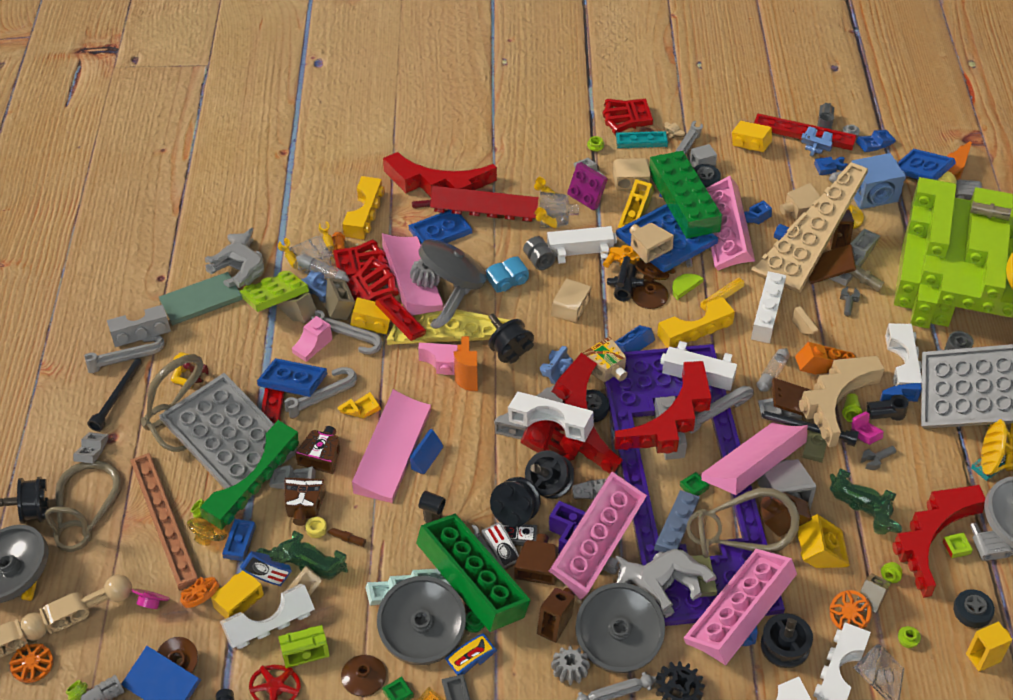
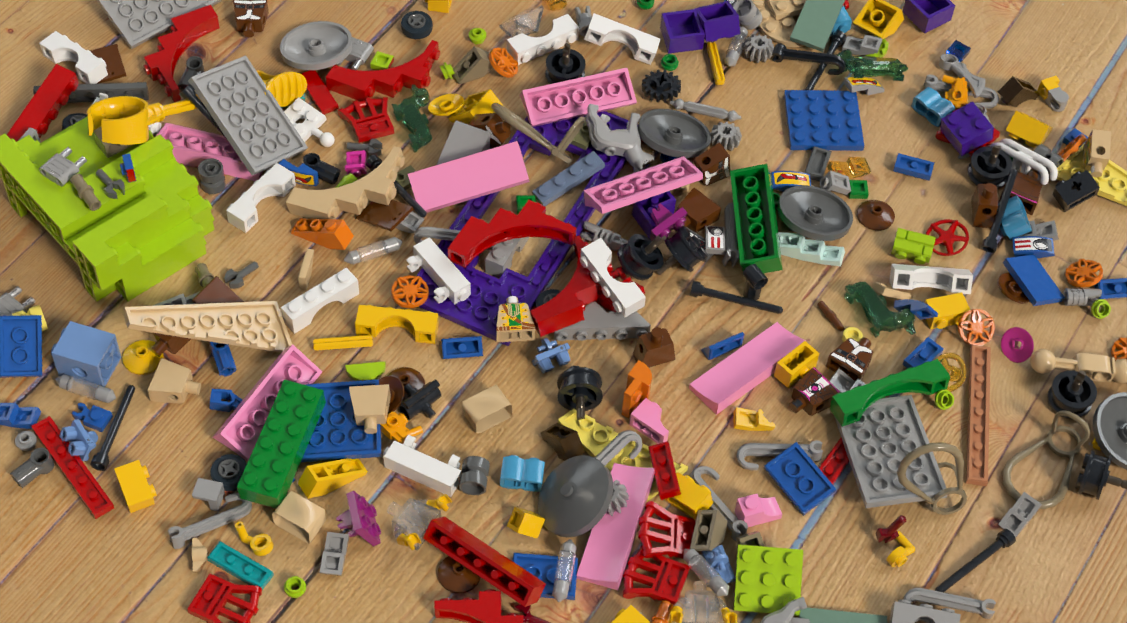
camera: 150 degrees left, 5 degrees up
(77, 571) = (1072, 392): none -> black wheel
(347, 459) = (796, 364): none -> yellow brick
(422, 677) = (836, 182): none -> light grey bracket
(424, 225) = (564, 570): none -> piece
(477, 410) = (654, 347): none -> reddish brown torso
(478, 248) = (525, 522): none -> yellow panel
(480, 489) = (699, 290): none -> black piece
(494, 303) = (563, 441): none -> dark brown arch
(543, 498) = (666, 221): none -> magenta plate
(640, 150) = (260, 544): none -> yellow plate
(709, 345) = (410, 291): none -> orange wheel
(792, 144) = (101, 459): none -> black piece
(854, 531) = (446, 104): none -> yellow dish
(891, 477) = (368, 127): none -> red plate
(944, 440) = (313, 120): none -> white plate
(961, 477) = (319, 93): none -> red tile
(977, 228) = (109, 192): none -> dark grey bar
(985, 241) = (127, 168): none -> blue plate

